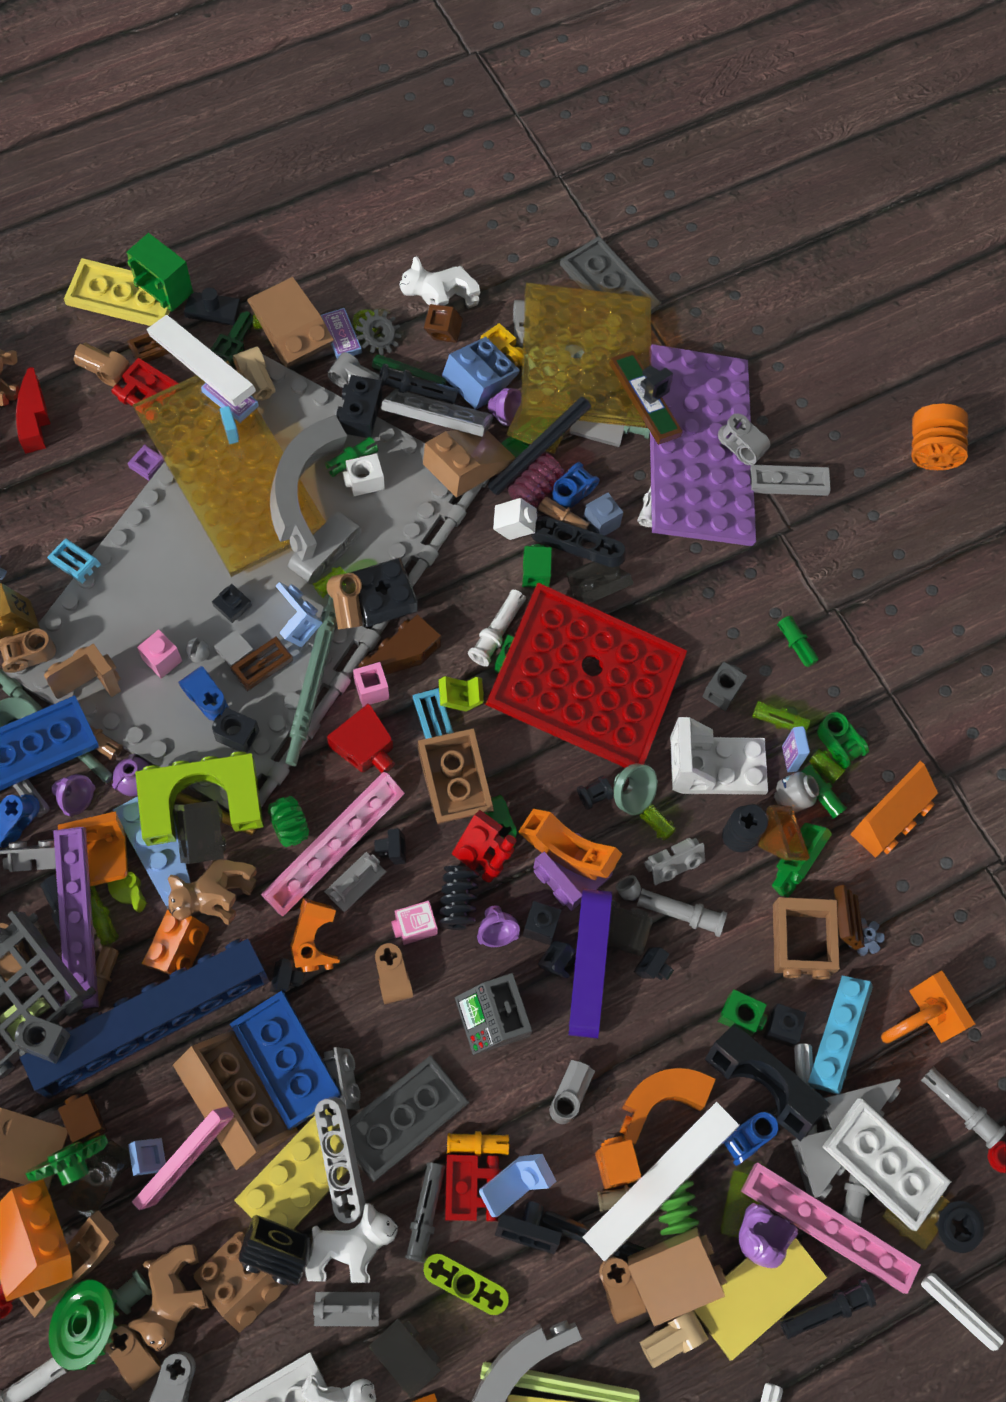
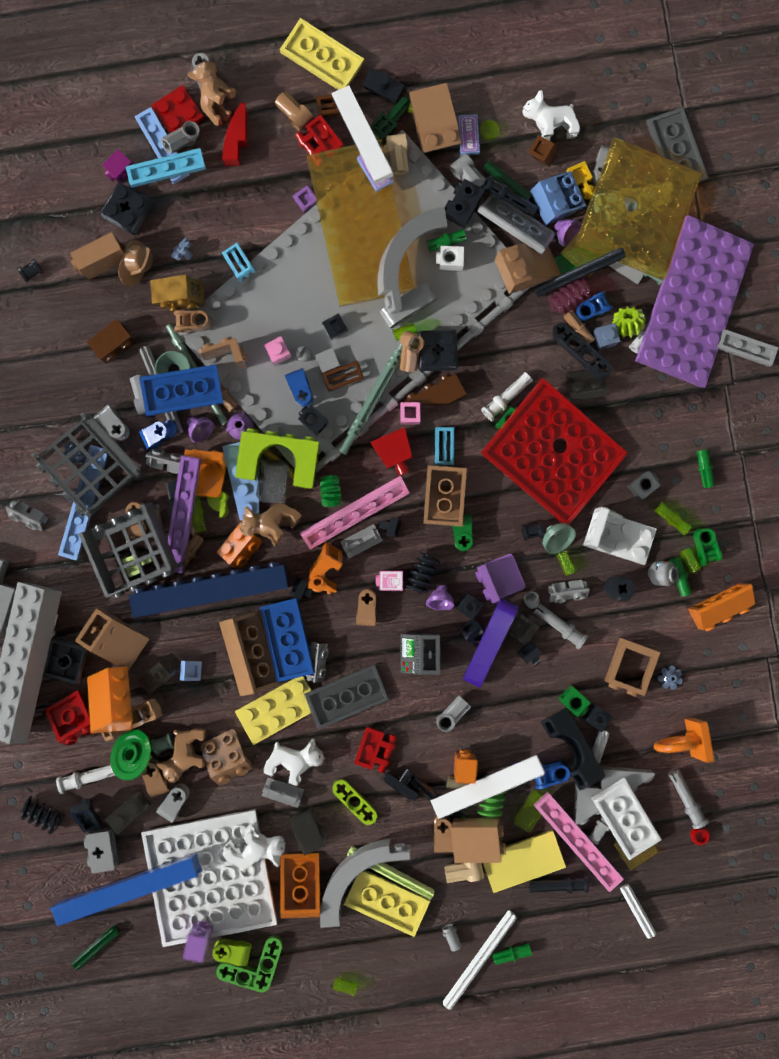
camera: 25 degrees right, 20 degrees up
(50, 1047) = (151, 593): dark grey brick -> none
(68, 1161) = (143, 662): green gear -> none
(82, 1118) = (158, 636): reddish brown brick -> none
(159, 272) = (352, 52): green container -> none
(183, 1158) = (211, 681): bright pink tile -> none
(229, 424) = (368, 194): medium azure tile -> none
(275, 1250) = (250, 752): black brick -> none
(304, 622) = (381, 356): light blue bracket -> none
(334, 1159) = (305, 712): light grey beam -> none
(375, 322) = (495, 151): dark grey gear -> none
(425, 1213) = (343, 755): dark grey pin -> none
(460, 693) = (467, 436): lime bracket -> none
(476, 842) = (447, 541): red plate -> none
(478, 1143) = (387, 725): light orange pin -> none
(514, 1181) = (400, 755): light blue bracket -> none
(515, 519) = (544, 321): white brick -> none
(536, 565) = (548, 360): green brick -> none
(568, 848) = (502, 565): orange arch -> none
(627, 487) = (629, 321): none -> lime gear
(655, 415) = (667, 258): tile -> none
(656, 384) = (677, 253): black tile -> none
(667, 1085) = (506, 729): orange arch -> none
(746, 441) = (727, 312): light grey piece -> none
(765, 1236) = (538, 836): medium lavender hair -> none
(783, 834) = (643, 600): clear orange slope -> none
(793, 871) = (648, 615): green hinge -> none
(795, 749) = (673, 545): tile -> none
(840, 1035) = (630, 733): medium azure plate -> none
(849, 917) = (664, 664): reddish brown tile -> none
(971, 1223) = (663, 862): black gear -> none

